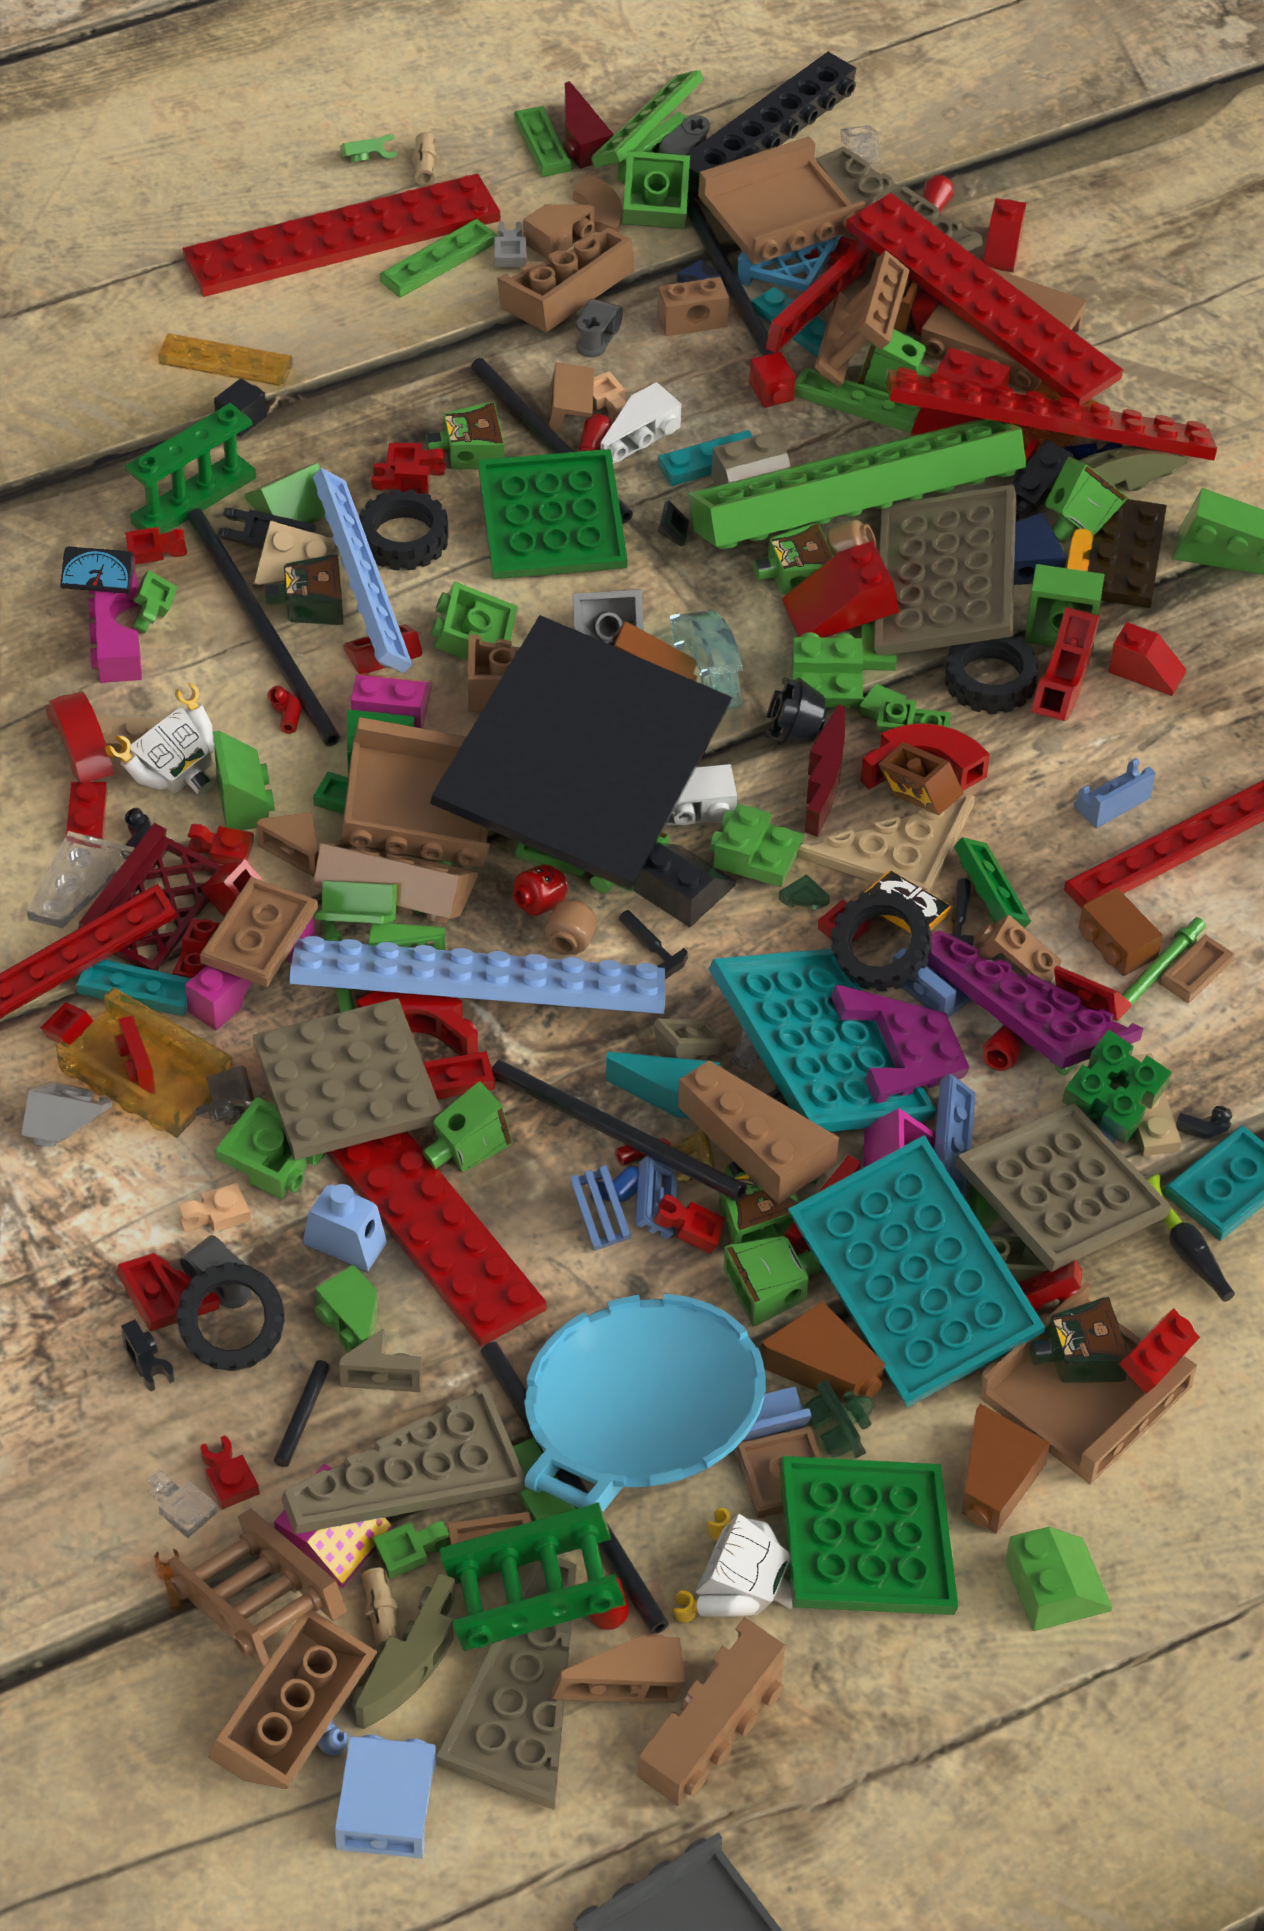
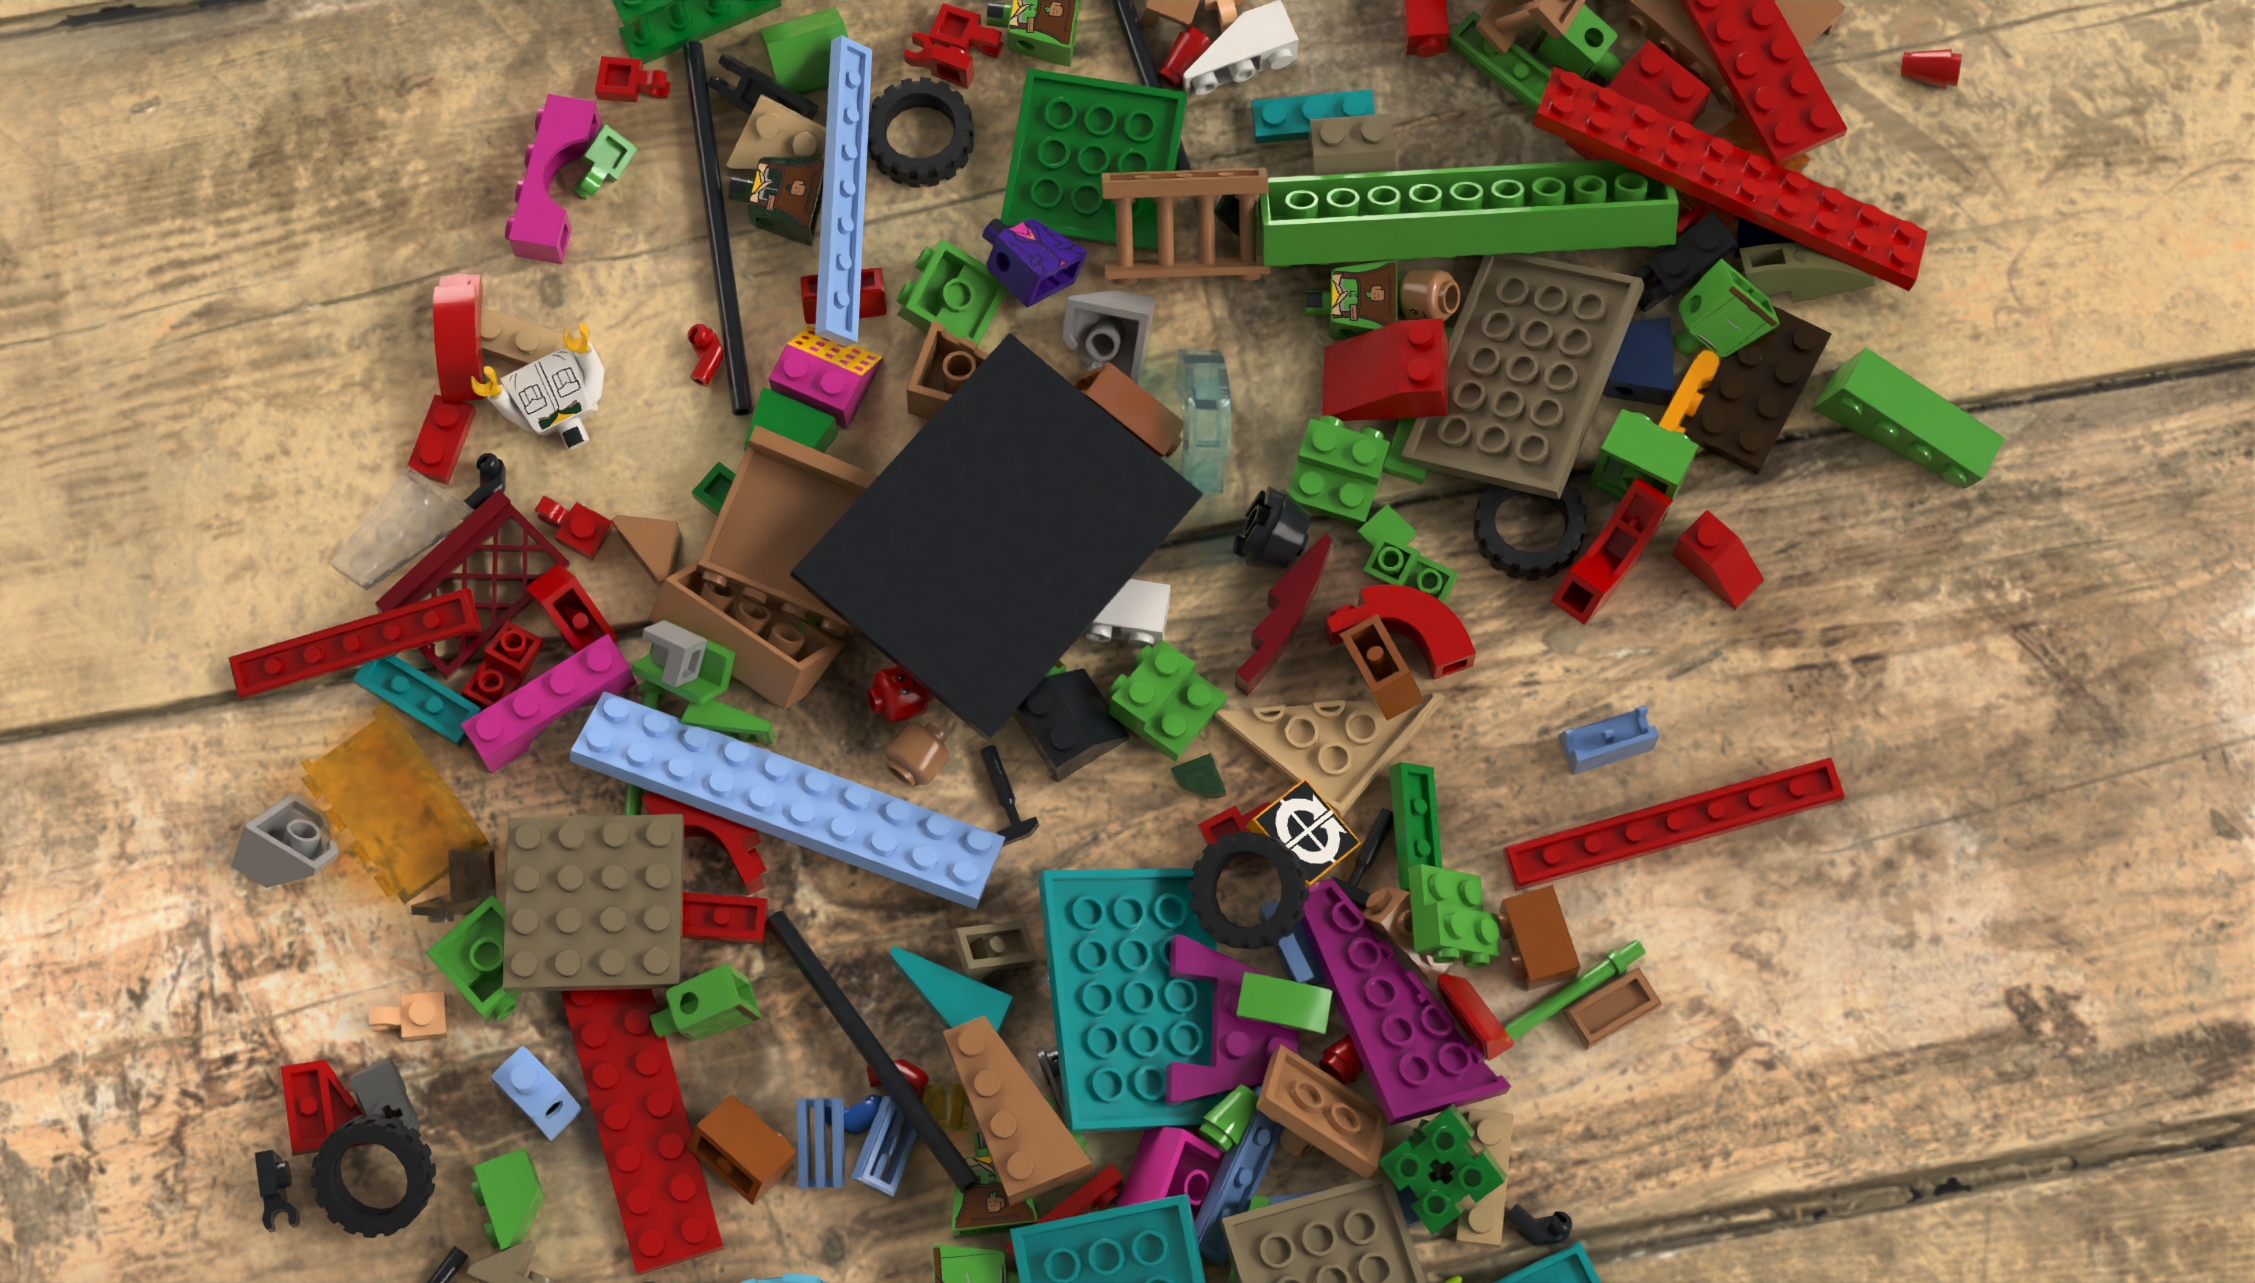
camera: 20 degrees right, 20 degrees up
(67, 1024) = (327, 728): red plate -> none
(97, 570) = (543, 117): slope -> none
(131, 1045) = (383, 783): red plate -> none
(241, 783) = (614, 455): bright green slope -> none
(258, 931) = (557, 682): medium nougat tile -> none
(348, 892) = (676, 651): none -> light grey panel
(529, 583) = (1032, 259): none -> dark purple torso
(537, 1225) = (742, 1149): none -> dark orange brick
(652, 500) = (1164, 189): none -> medium nougat fence
(695, 1223) = (917, 1197): red plate -> none
(930, 1101) = (1229, 1119): none -> bright green cone
(941, 1008) = (1284, 1003): none -> bright green slope
(1001, 1081) = (1321, 1113): none -> medium nougat plate
(1048, 929) = (1451, 917): none -> bright green plate
(1167, 329) = (1932, 67): none -> red cone

